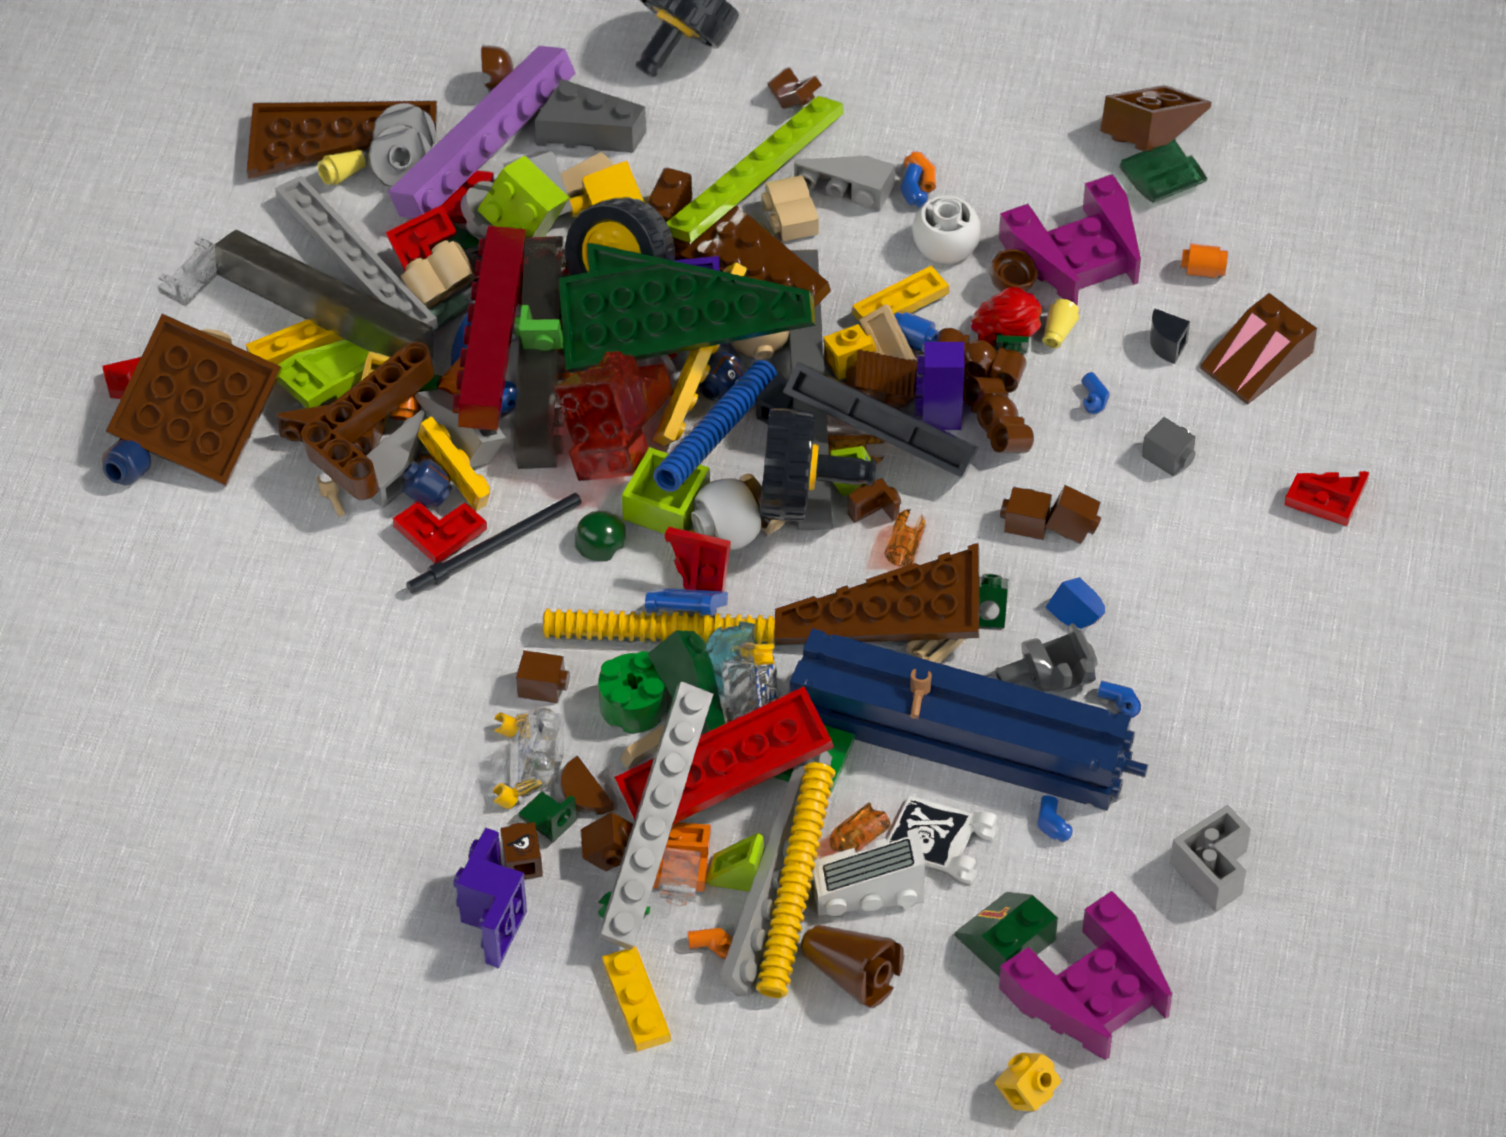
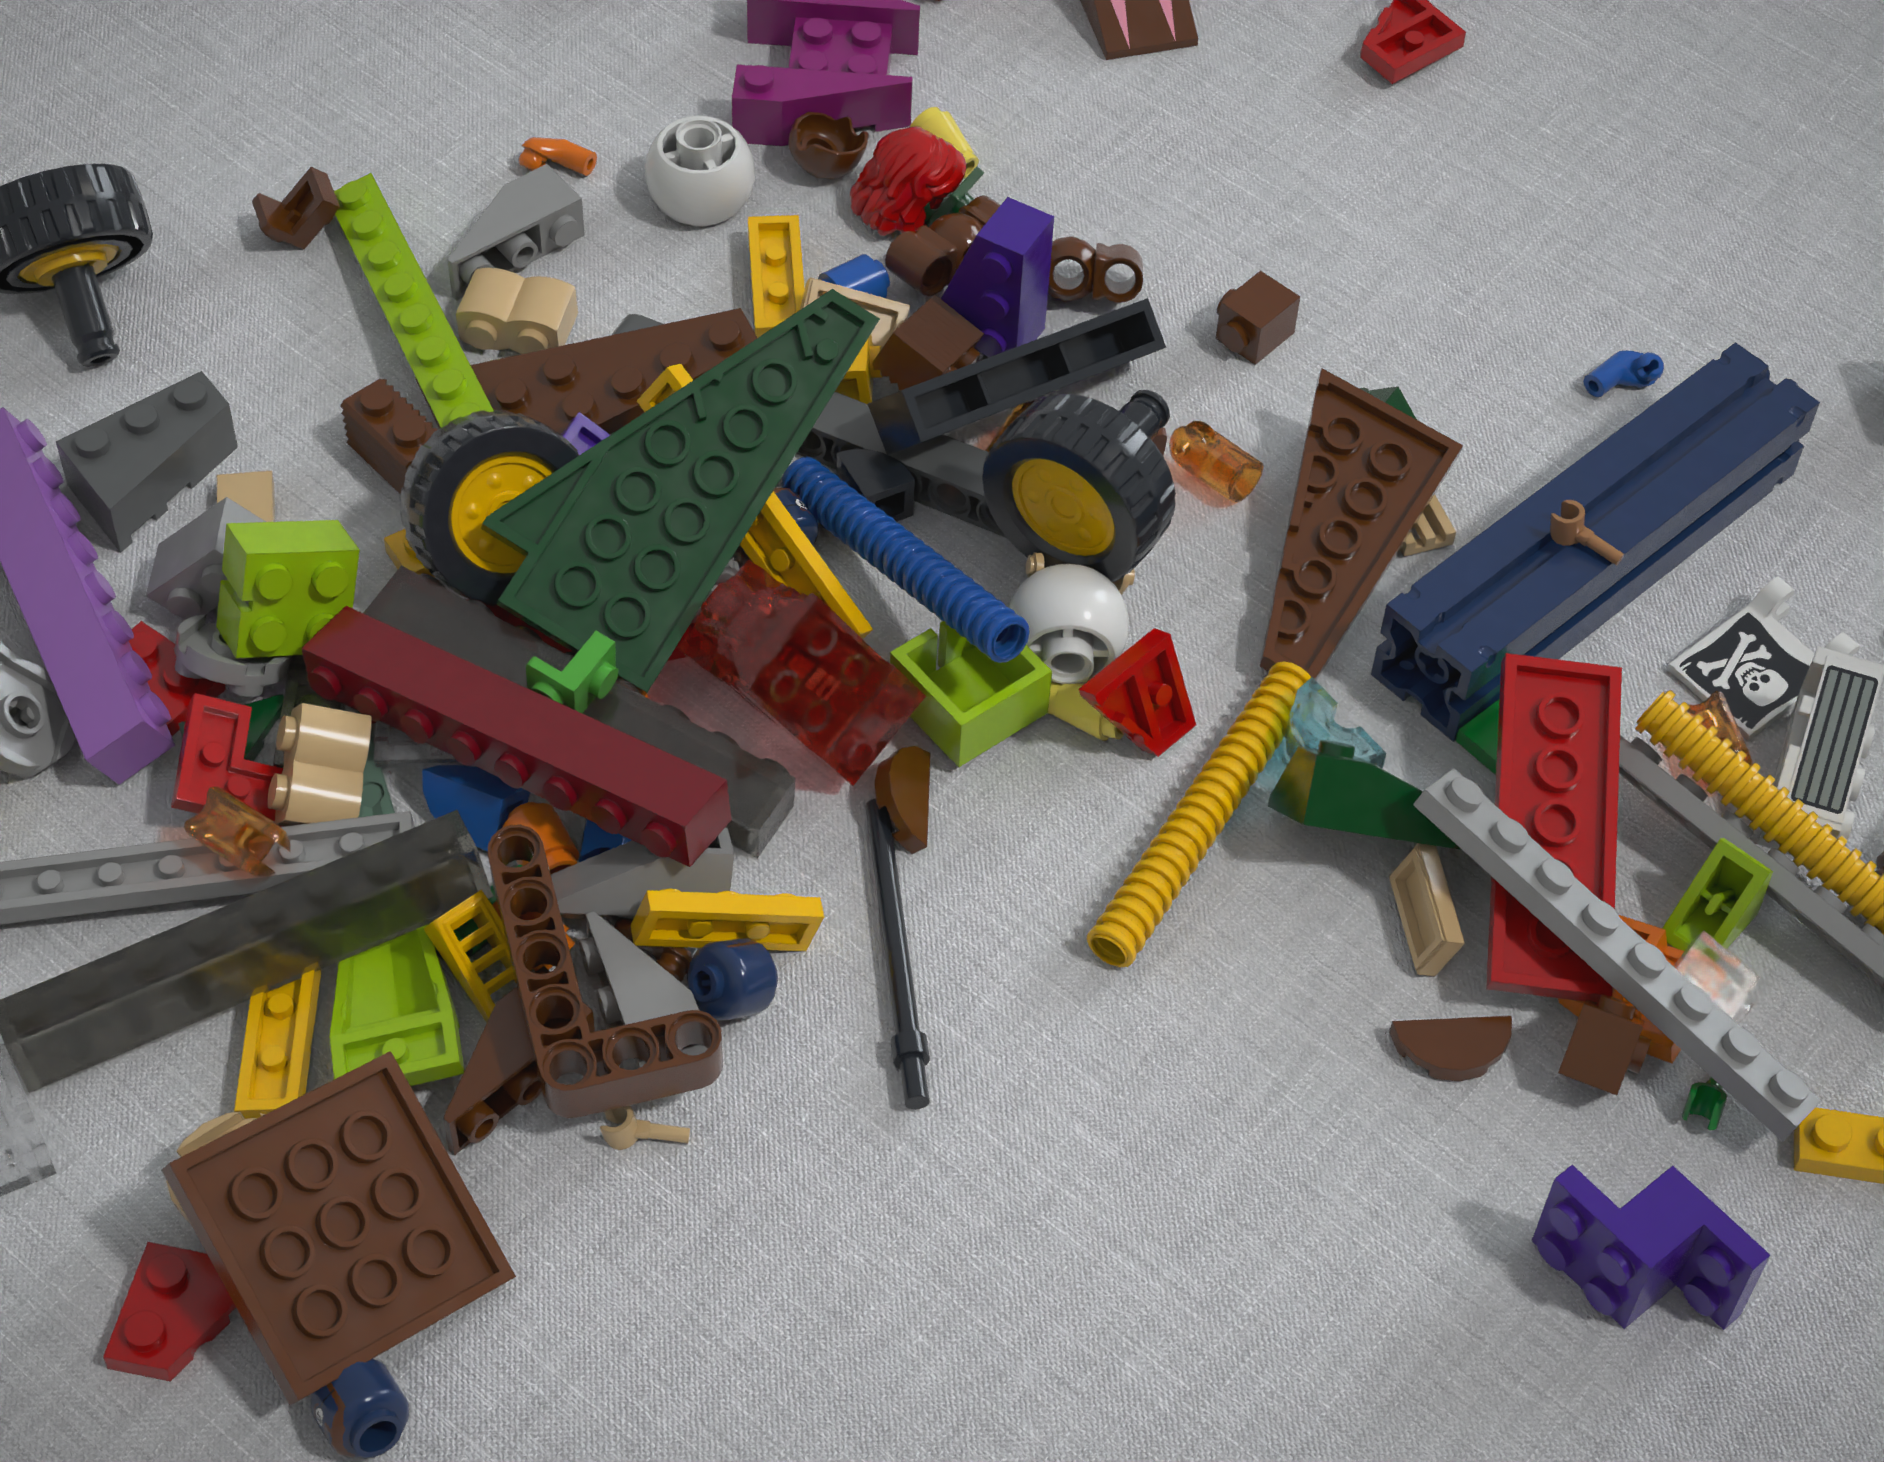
camera: 65 degrees left, 0 degrees up
(377, 261) = (236, 832): none -> clear orange piece
(441, 537) = (839, 1017): red plate -> none
(522, 849) = (1537, 1163): reddish brown brick -> none
(538, 753) = (1376, 1058): clear torso -> none
(541, 677) = (1215, 999): reddish brown brick -> none
(550, 816) = (1497, 1108): dark green bracket -> none
(586, 499) = (904, 789): none -> reddish brown tile
(599, 535) = (973, 808): dark green hair -> none
(605, 185) = (329, 486): yellow torso -> none
(632, 693) = (1321, 892): green brick -> none
(685, 600) = (1195, 745): blue plate -> none
(714, 939) = (1829, 1001): orange arm -> none
(749, 679) = (1417, 727): clear torso -> none
(910, 188) = (585, 180): blue arm -> none
(1050, 822) = (1794, 535): blue arm -> none
(1054, 664) = (1547, 398): dark grey piece -> none
(1074, 515) = (1304, 266): reddish brown brick -> none
(1076, 604) = (1445, 342): blue brick -> none
(1097, 396) = (1090, 165): blue arm -> none
(1168, 335) = (1045, 54): black brick -> none
(1169, 446) = (1235, 135): dark grey brick -> none

